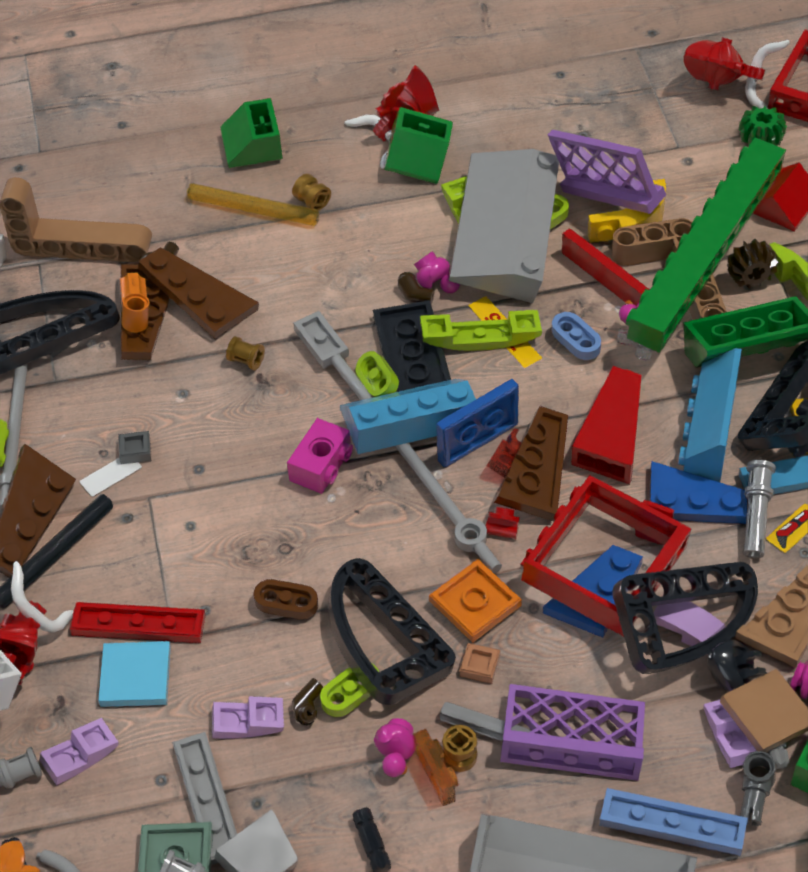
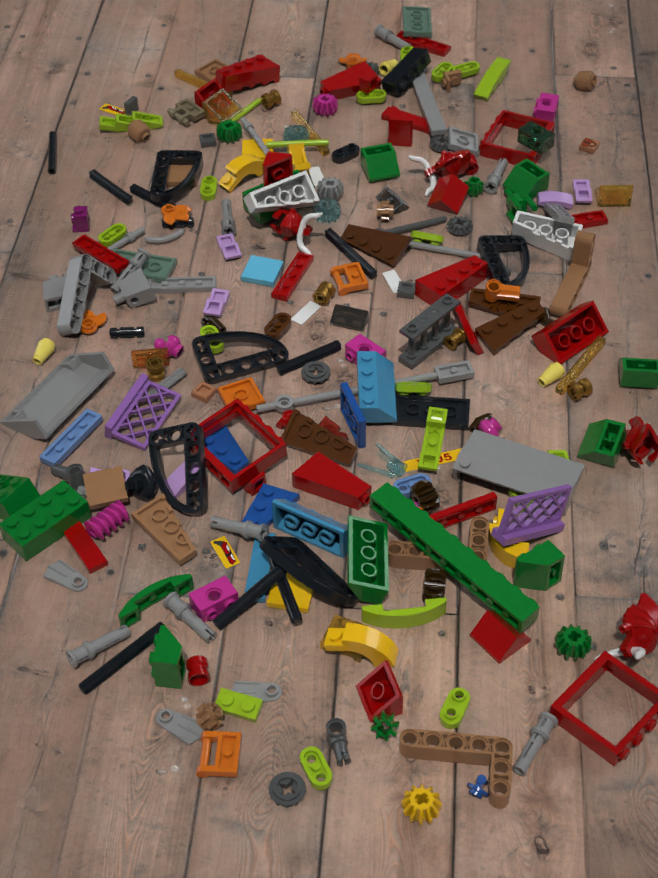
camera: 105 degrees right, 5 degrees down
(112, 381) = (453, 280): none -> red wedge
(123, 523) = (354, 275): none -> orange plate
(182, 553) = (323, 293): none -> pearl gold wheel
(189, 223) = (570, 332): none -> red slope
(208, 343) = (467, 326): none -> red tile
(227, 578) = (305, 313): none -> white sticker
(233, 505) = (349, 317): none -> clear smoke slope
(253, 384) = (432, 341): none -> dark grey fence
(288, 228) = (551, 374): none -> light yellow cone
(346, 535) = (310, 356): none -> black axle
(388, 506) = (308, 372): none -> dark grey gear
(546, 364) = (395, 465): none -> clear light blue plant
(601, 306) = (425, 495): none -> dark brown gear
(673, 159) = (539, 567): none -> green slope

